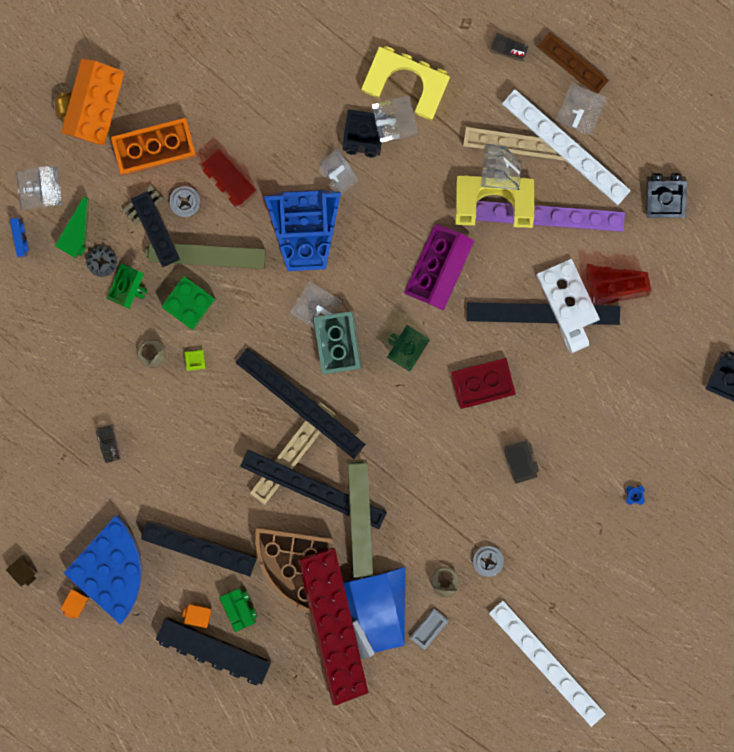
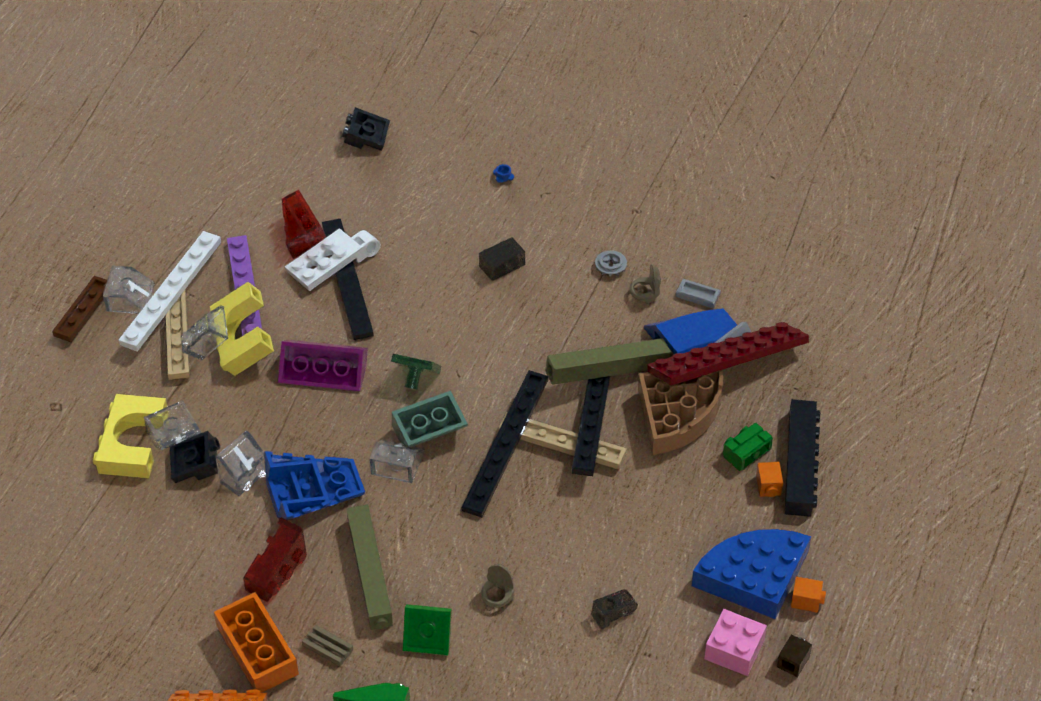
camera: 105 degrees left, 40 degrees down
(46, 528) = (735, 642): none -> bright pink brick
(106, 269) = (415, 672): dark grey gear -> none
(155, 229) = (352, 612): black plate -> none
(184, 192) = (310, 597): light grey gear -> none
(188, 303) = (428, 569): green brick -> none
(195, 360) = (491, 553): lime tile -> none
(199, 548) = (696, 495): black brick -> none
(483, 383) = (433, 305): dark red plate -> none
(509, 48) = (75, 360): clear smoke leg -> none
(547, 663) = (690, 202): white plate -> none
(666, 196) = (201, 210): black plate -> none

